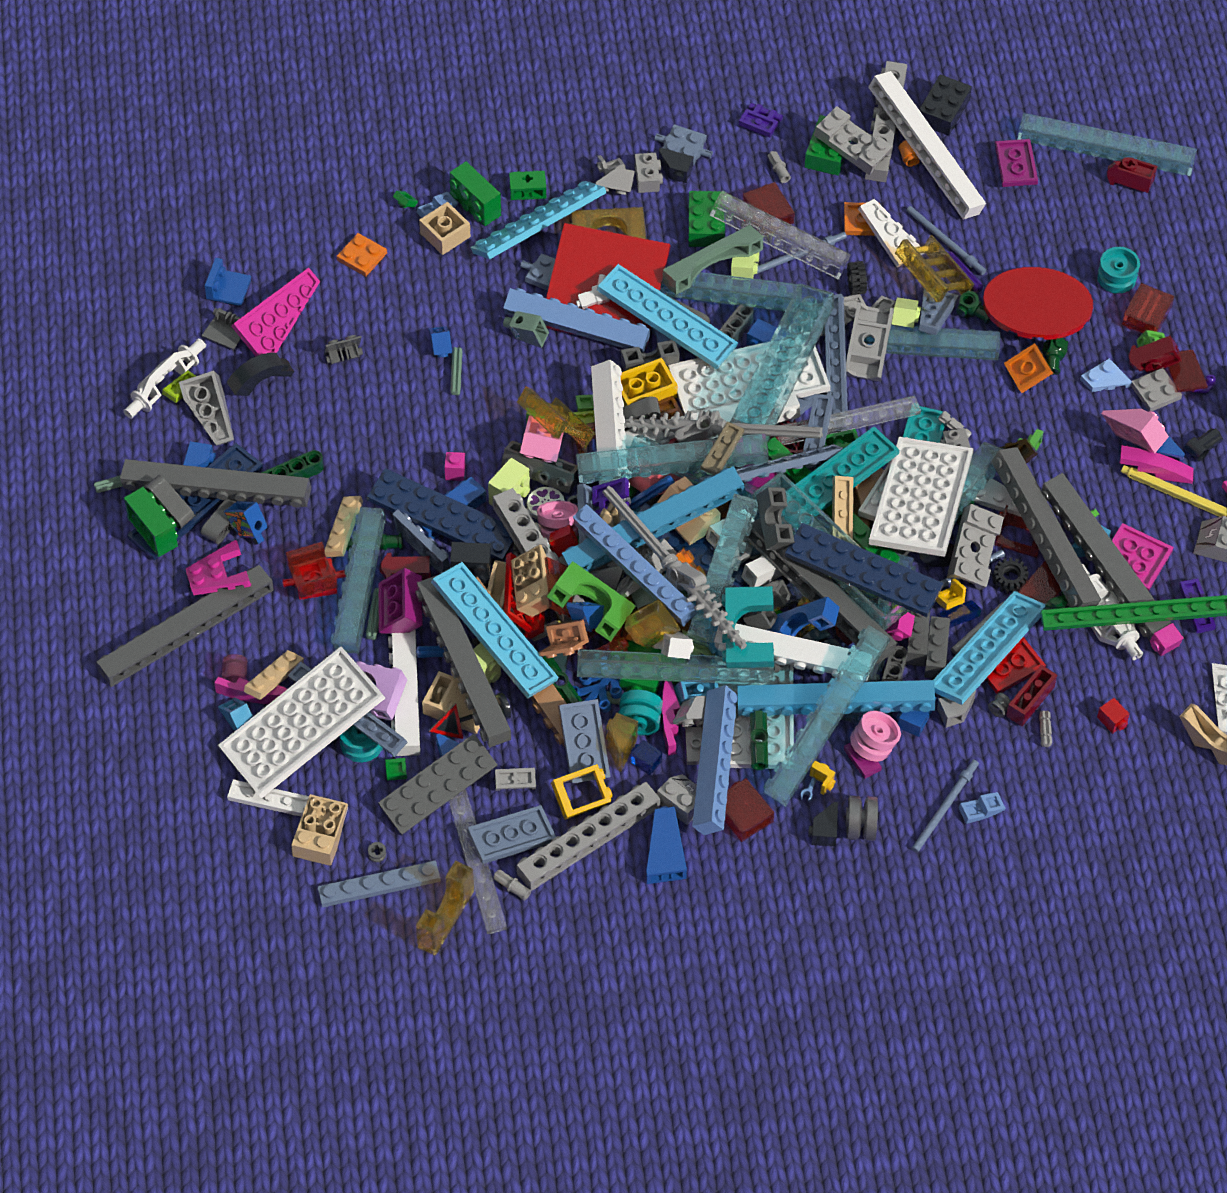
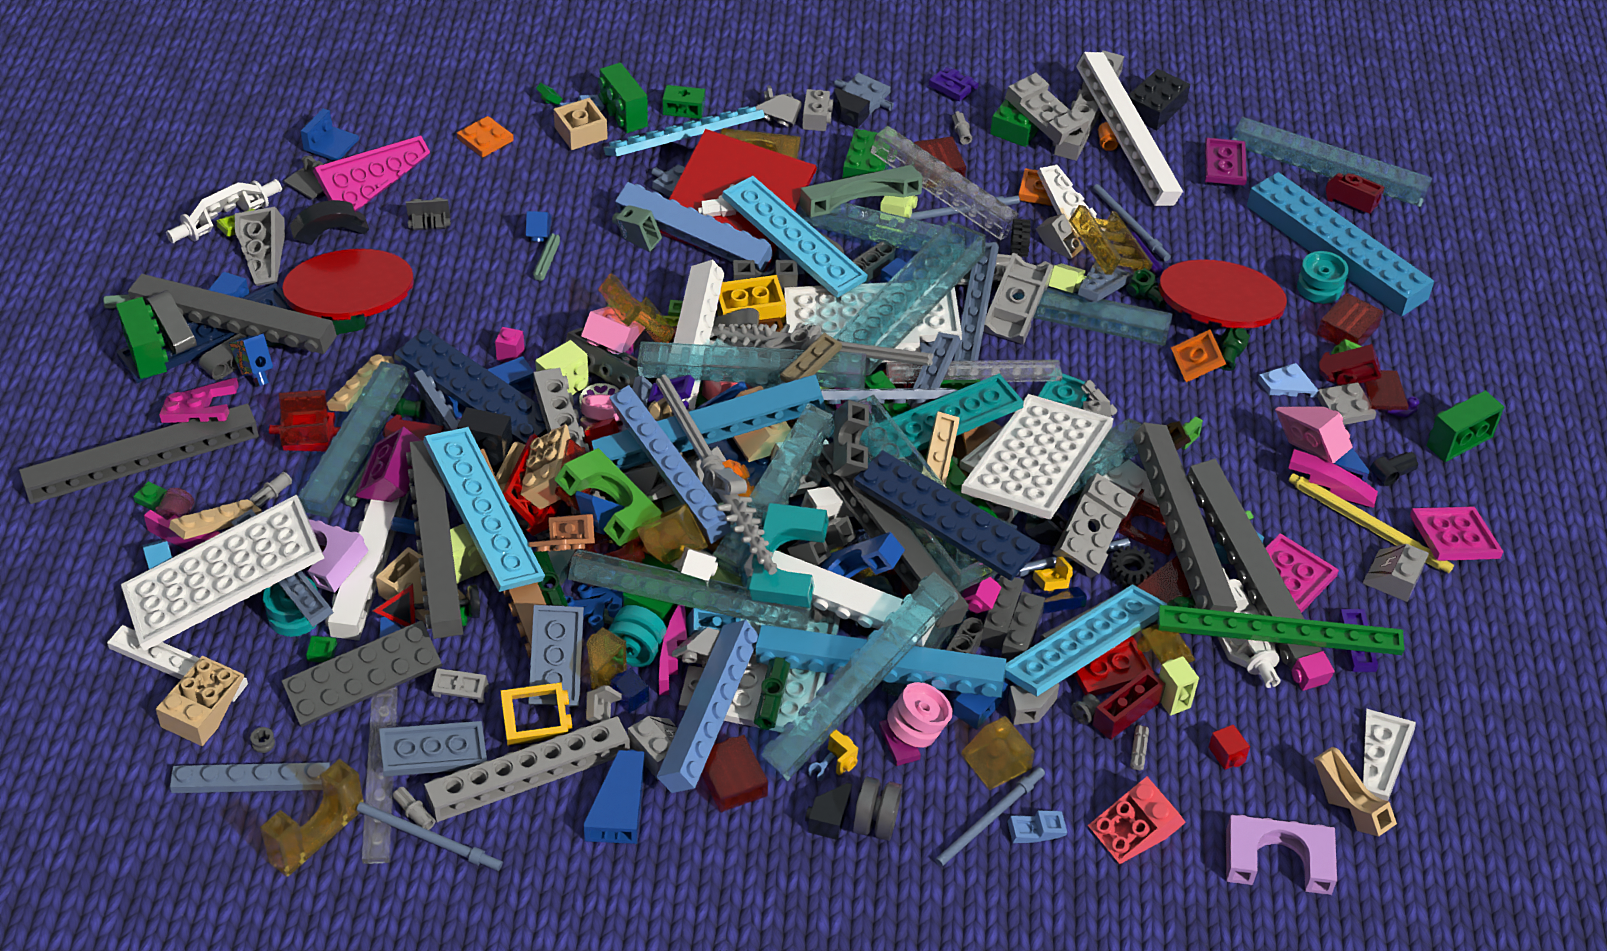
camera: 10 degrees right, 10 degrees down
(207, 662) = (149, 496): none -> green plate
(299, 432) = (348, 283): none -> red tile
(304, 637) = (271, 489): none -> light grey axle
(569, 911) = (475, 855): none -> sand blue bar
(626, 772) = (600, 702): none -> light grey bracket
(889, 268) = (1060, 236): none -> light grey slope
(941, 754) = (999, 753): none -> clear yellow slope
(1052, 642) = (1164, 645): none -> clear yellow hinge
(1055, 789) = (1136, 821): none -> coral slope
(1067, 672) = (1180, 685): none -> yellowish green brick
(1125, 228) = (1322, 229): none -> dark azure brick
(1187, 781) = (1311, 842): none -> lavender arch

